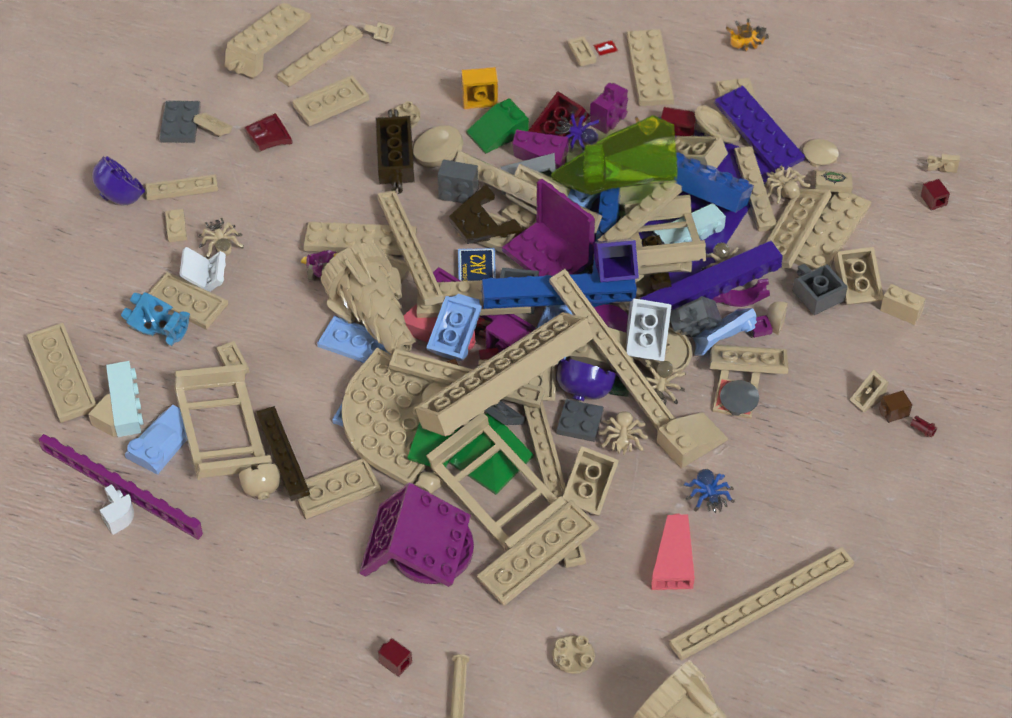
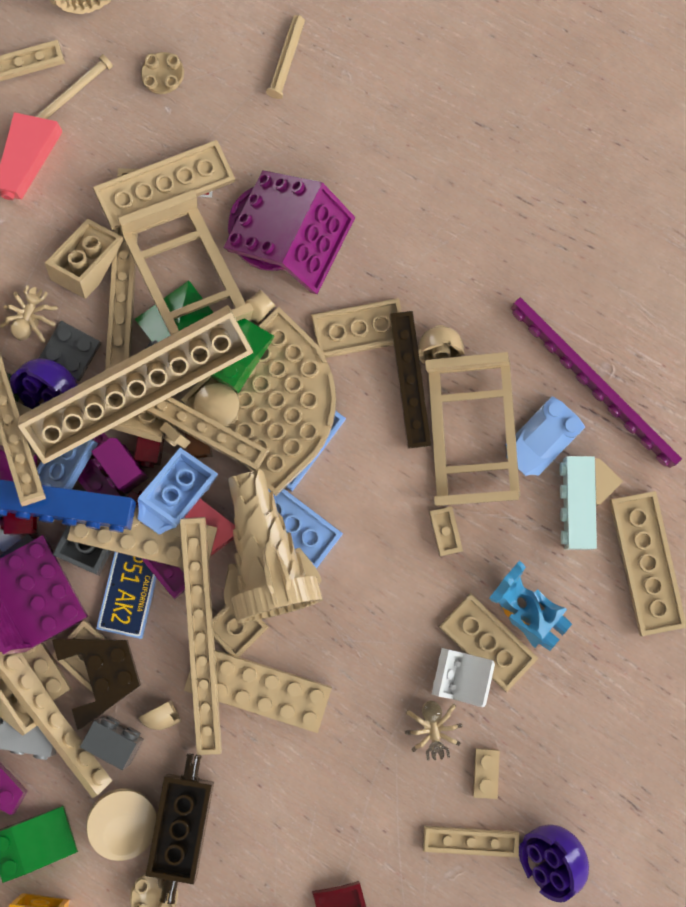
camera: 170 degrees left, 30 degrees up
(119, 512) = (597, 348): white brick -> none
(317, 262) = (313, 651): magenta hair -> none
(394, 657) = (339, 108): dark red brick -> none
(429, 210) = (161, 717): none -> tan brick
(468, 361) = (173, 436): none -> tan plate
(631, 650) = (76, 87): none -> tan bar

